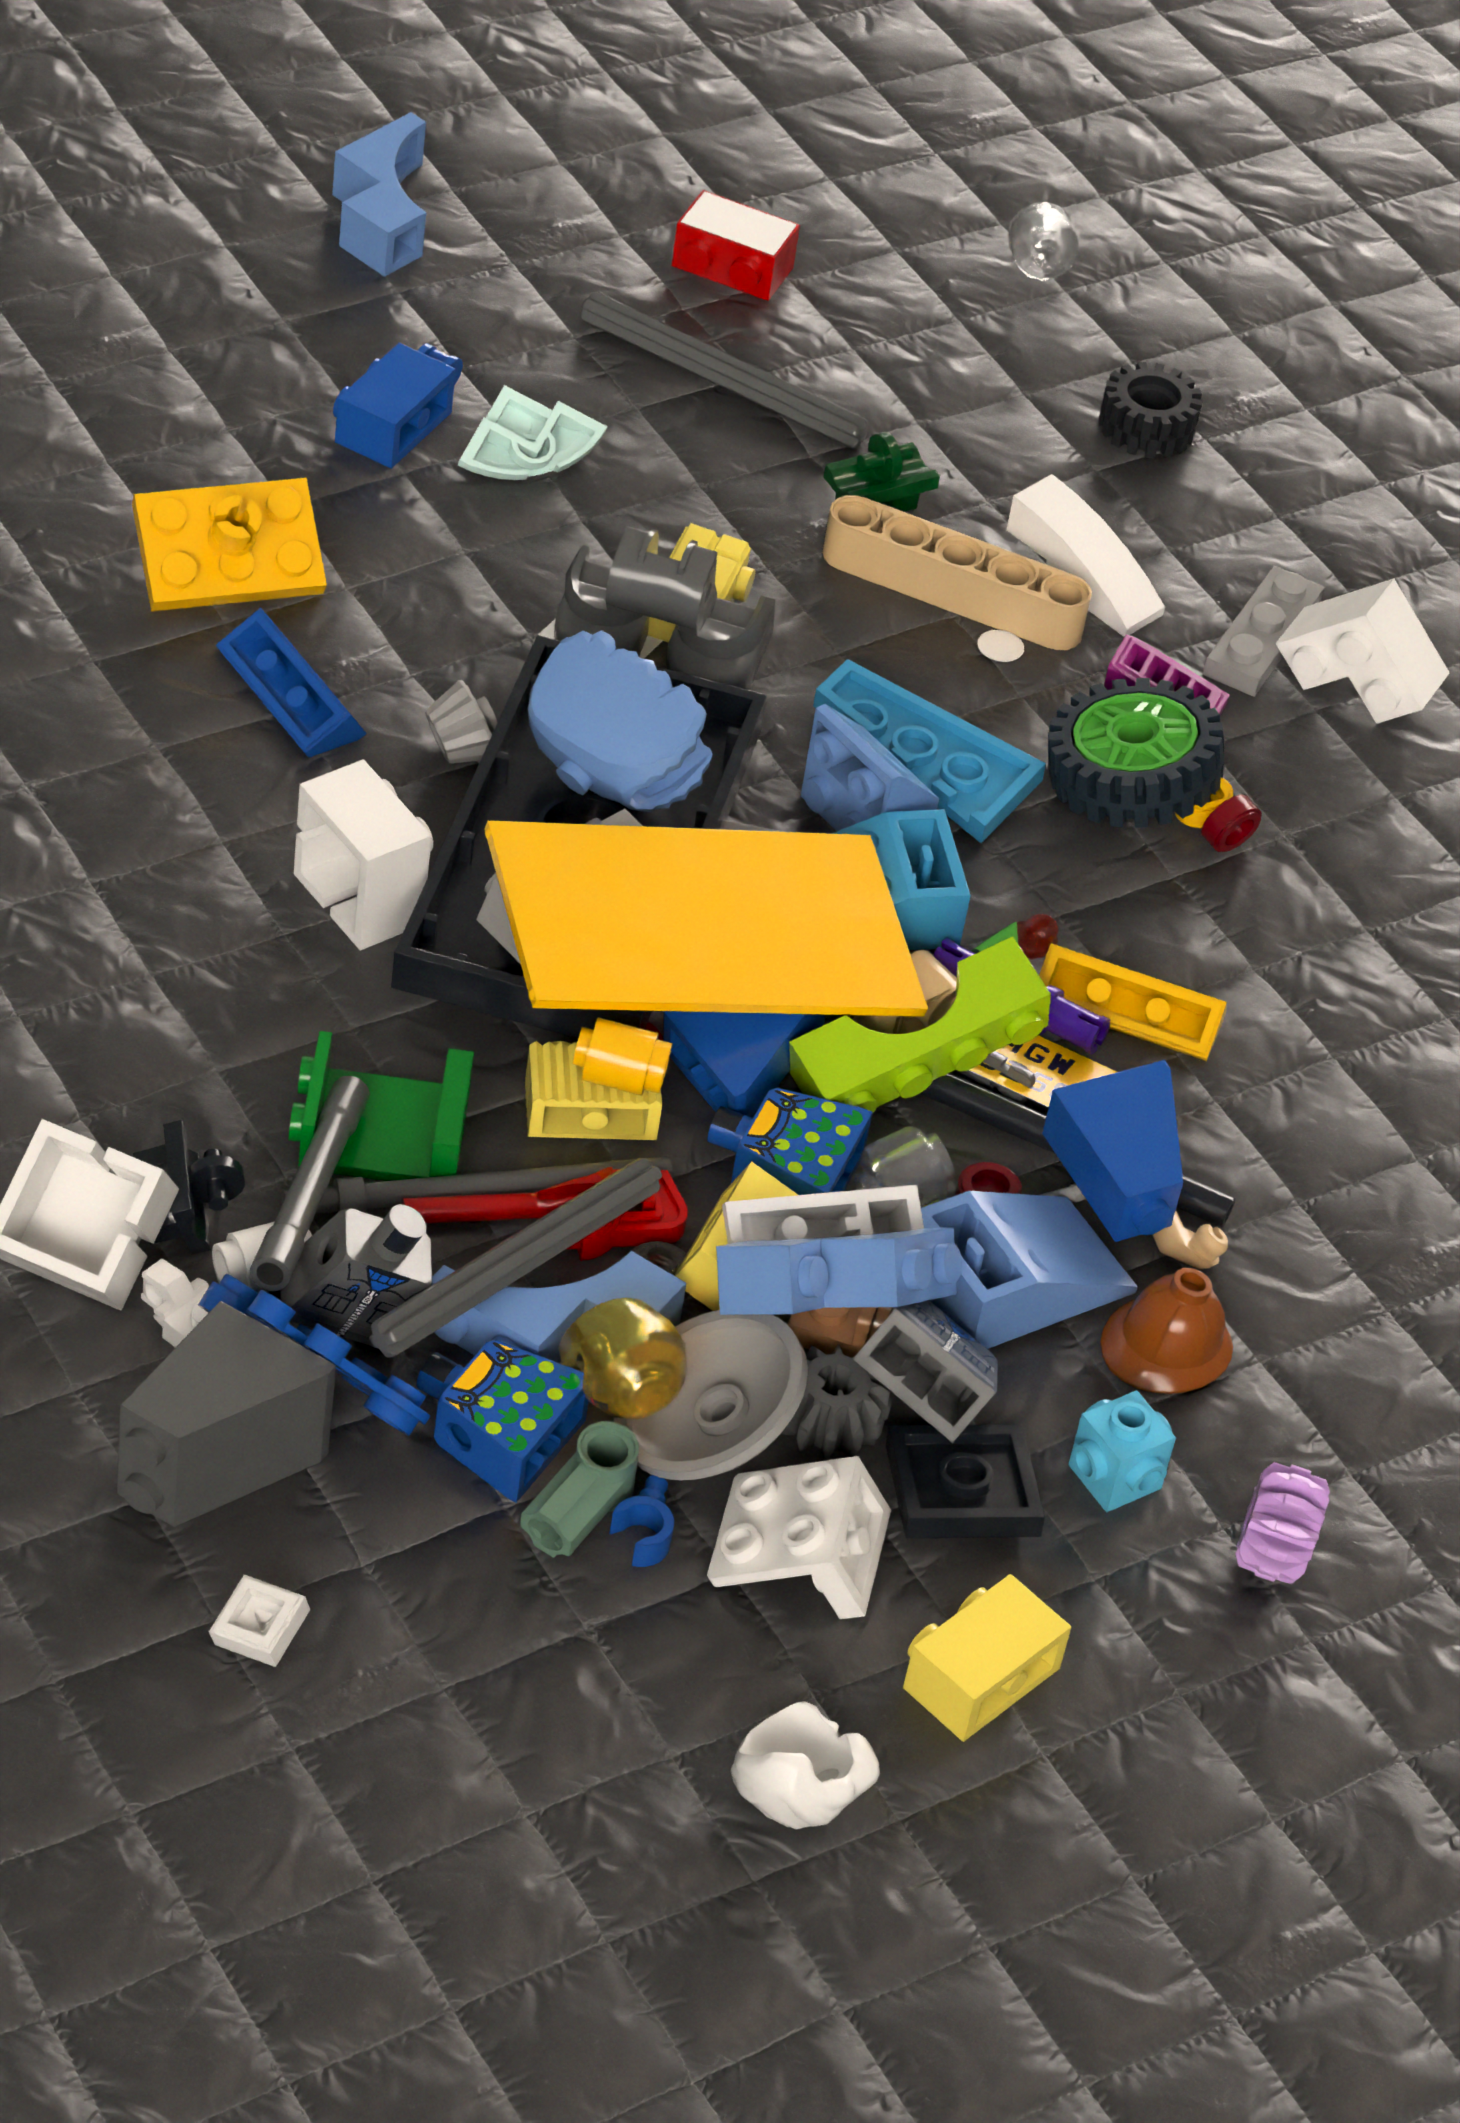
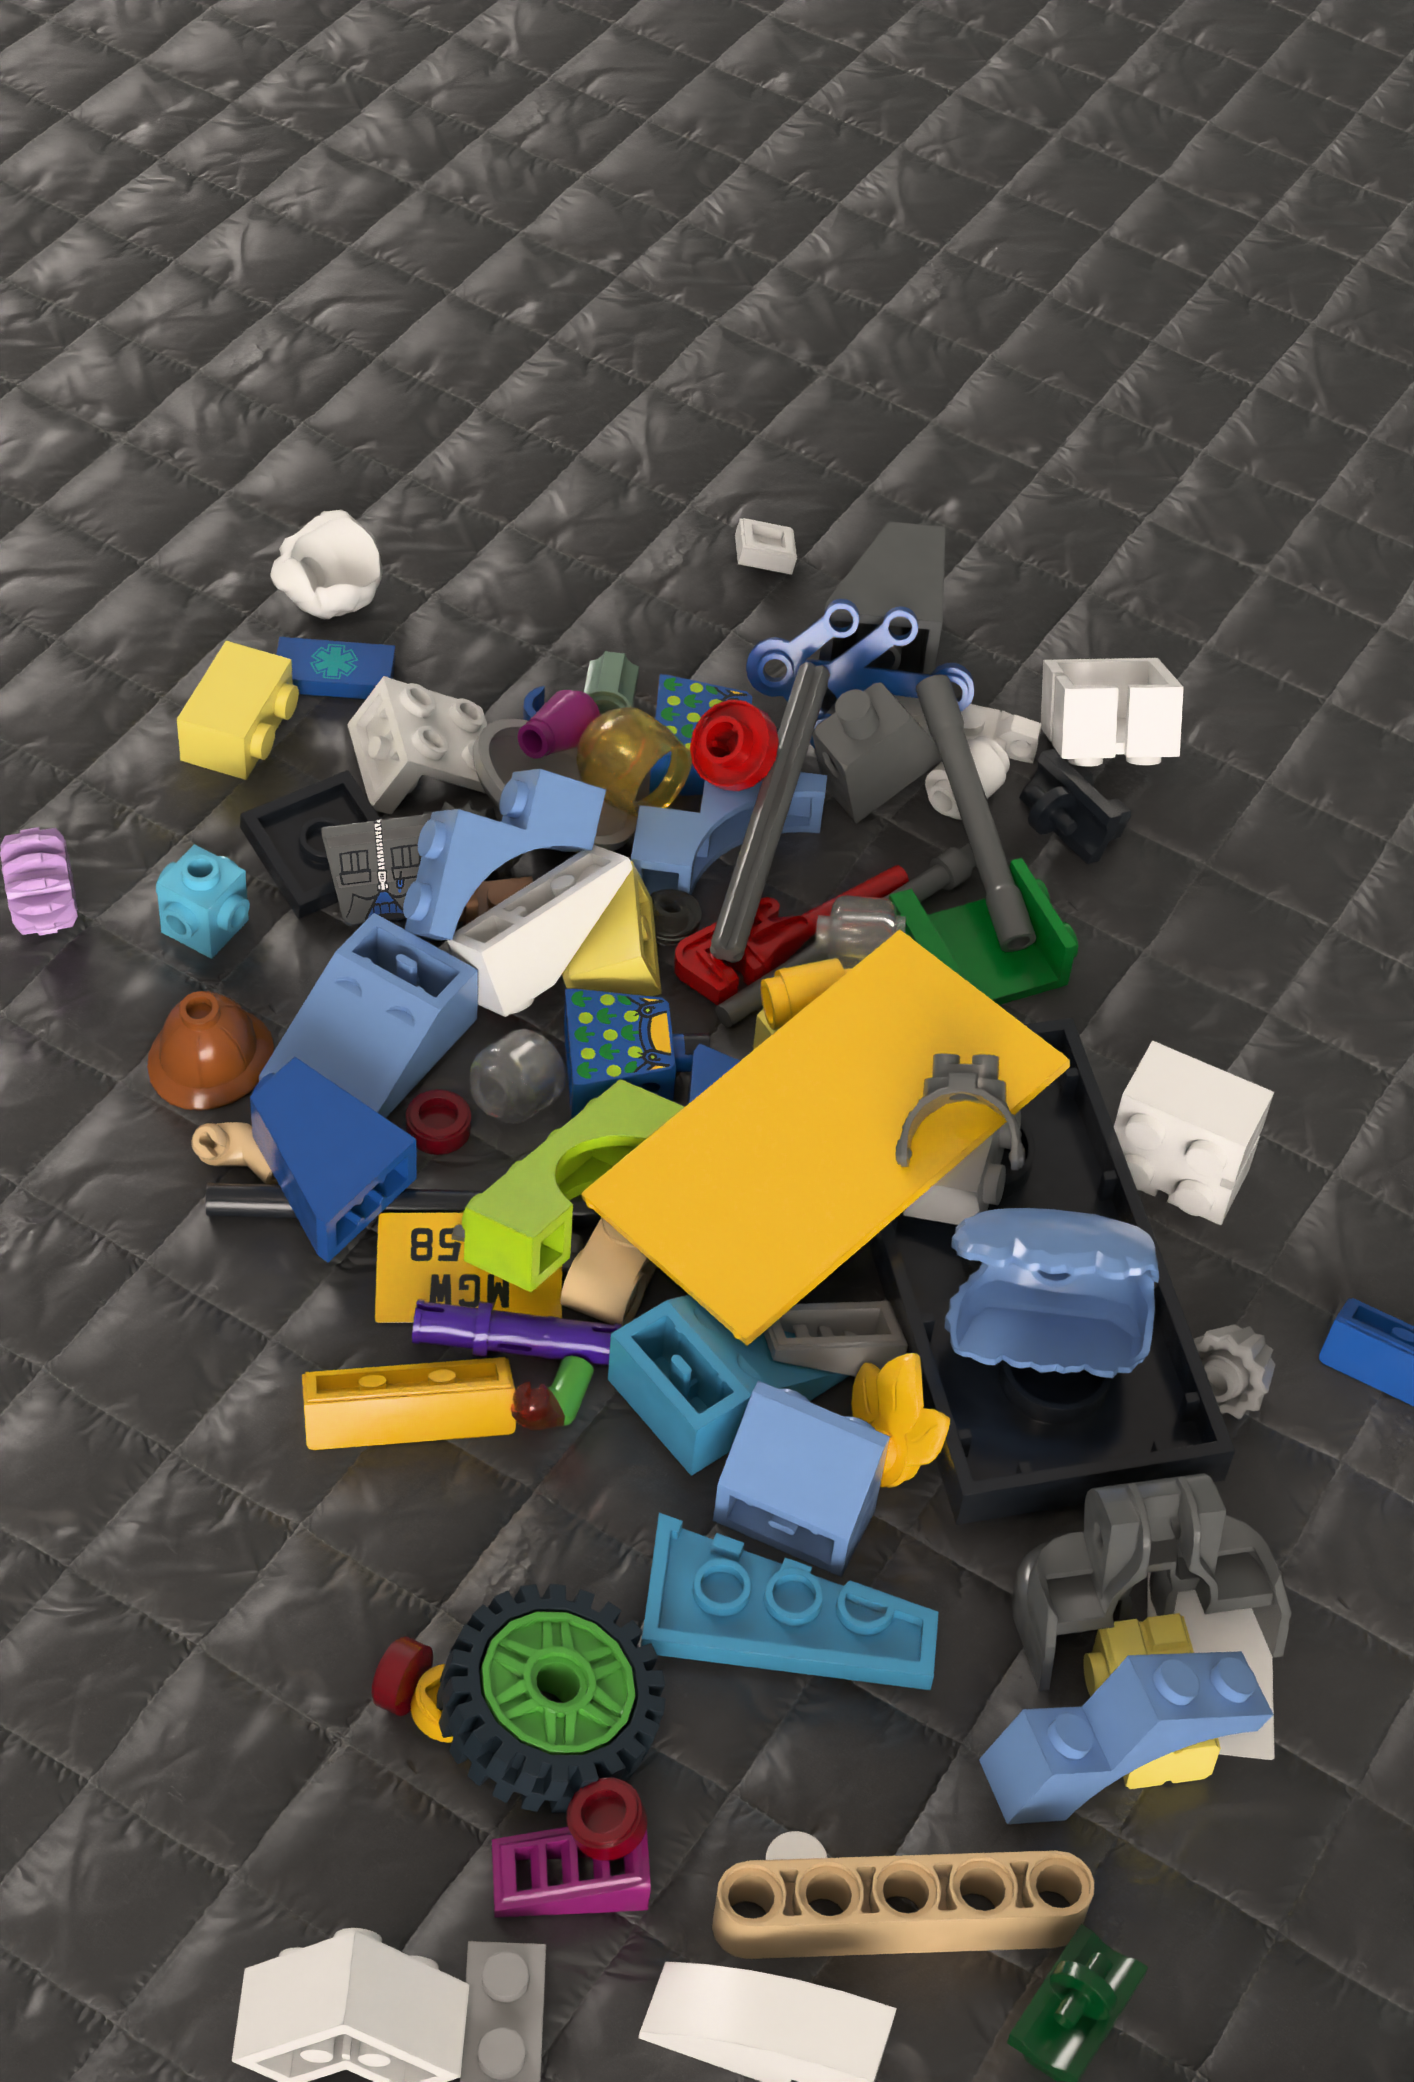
camera: 155 degrees right, 5 degrees up
(514, 1122) = (856, 928): none -> clear head
(525, 1298) = (734, 745): none -> red plate
(611, 835) = (957, 1083): none -> dark grey helmet
(680, 1422) = (557, 724): none -> magenta cone
(772, 790) = (895, 1406): none -> yellow plate
(797, 570) = (1144, 1710): none -> medium blue arch
(845, 1687) = (337, 666): none -> blue tile
(1138, 660) = (607, 1819): none -> dark red tile

